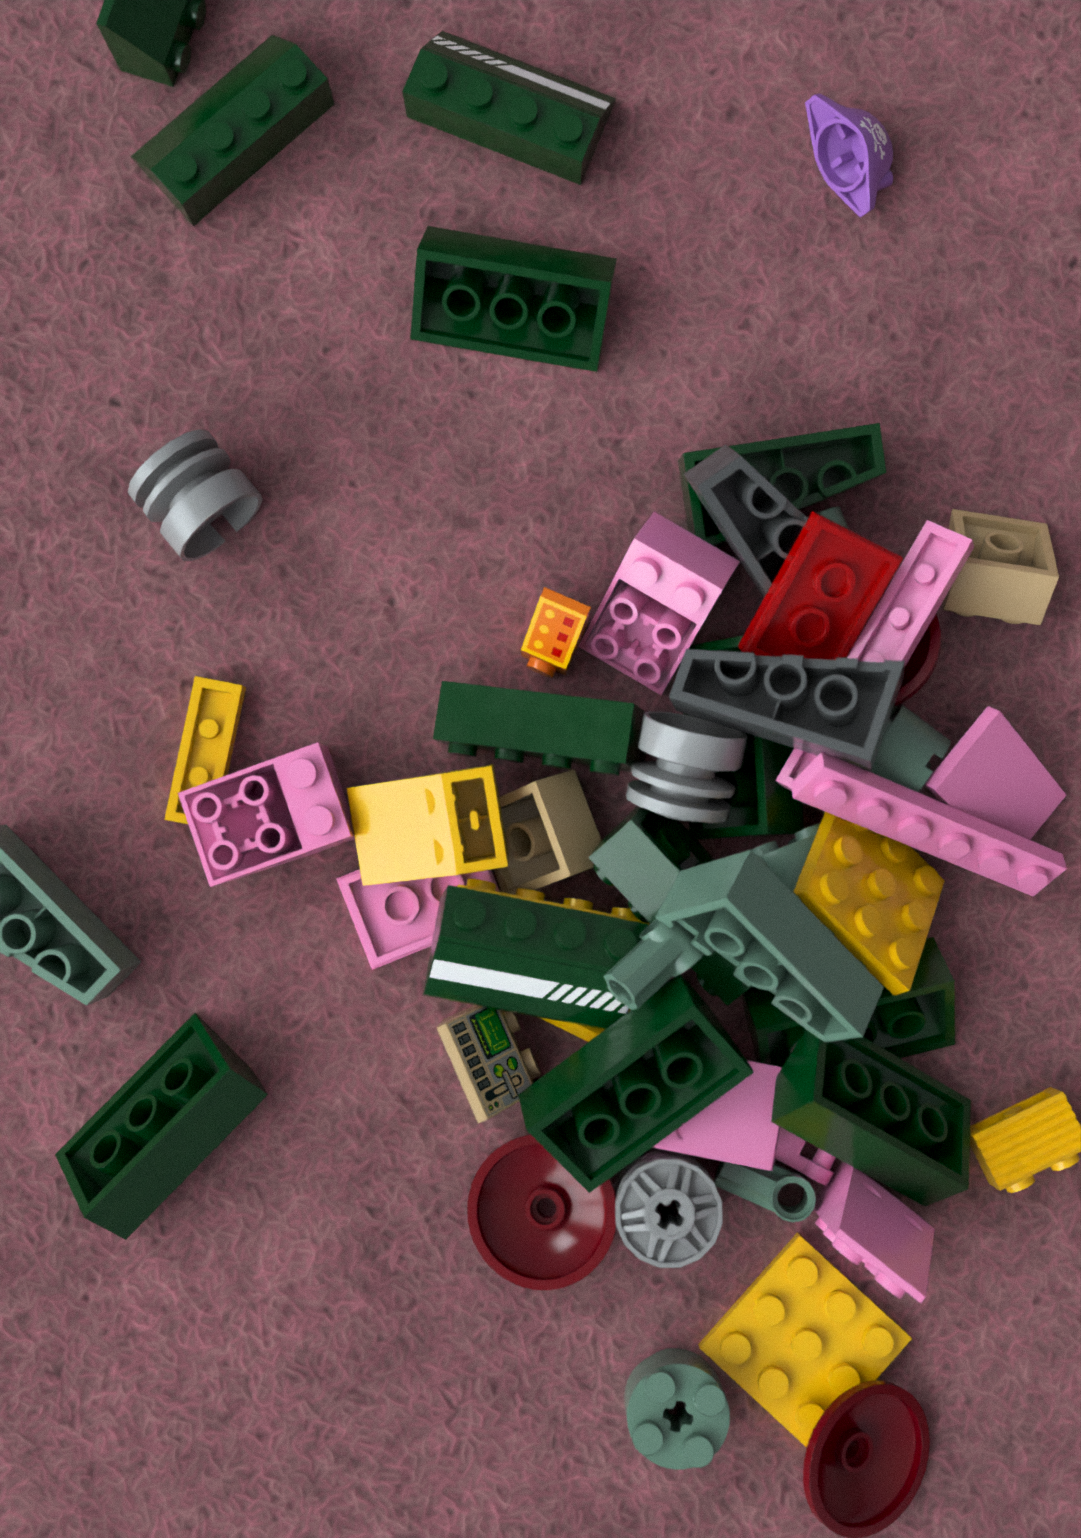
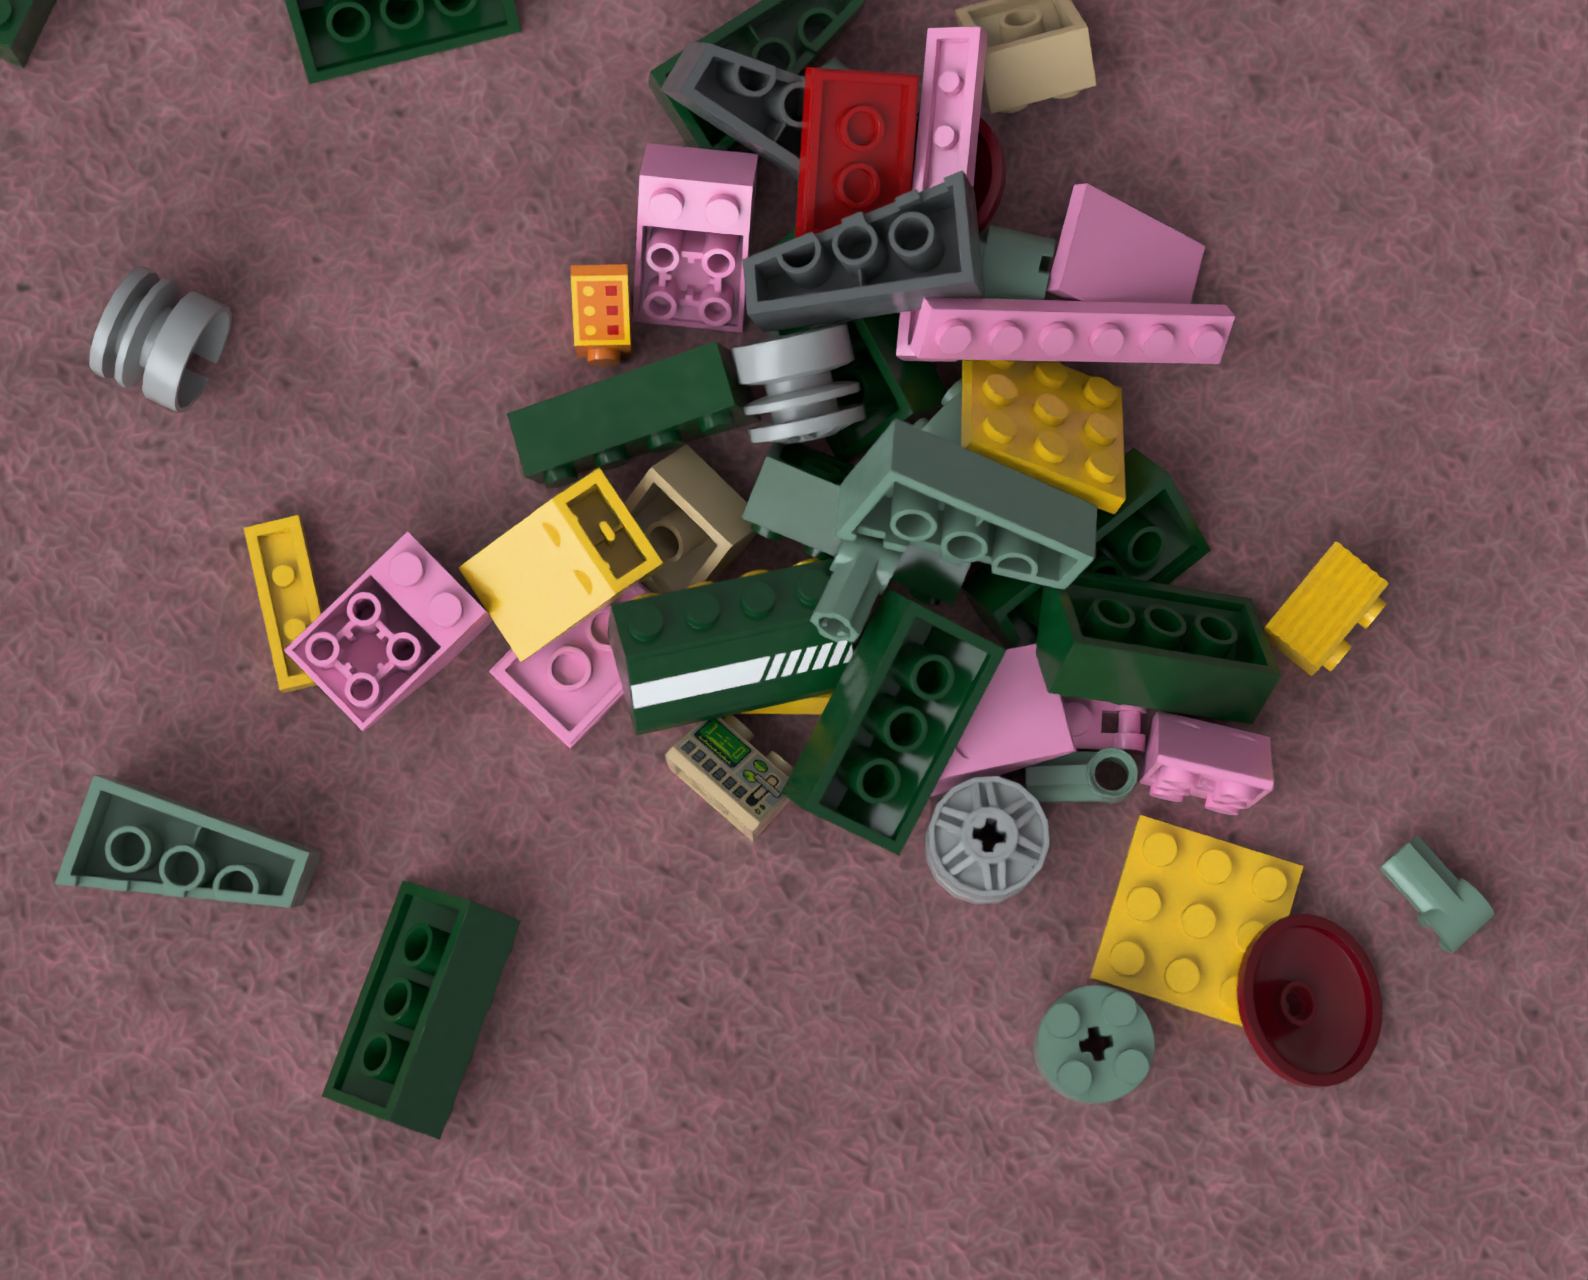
camera: 30 degrees left, 5 degrees down
(518, 1237) = (821, 919): dark red dish -> none
(1010, 1418) = (1443, 901): none -> sand green piece

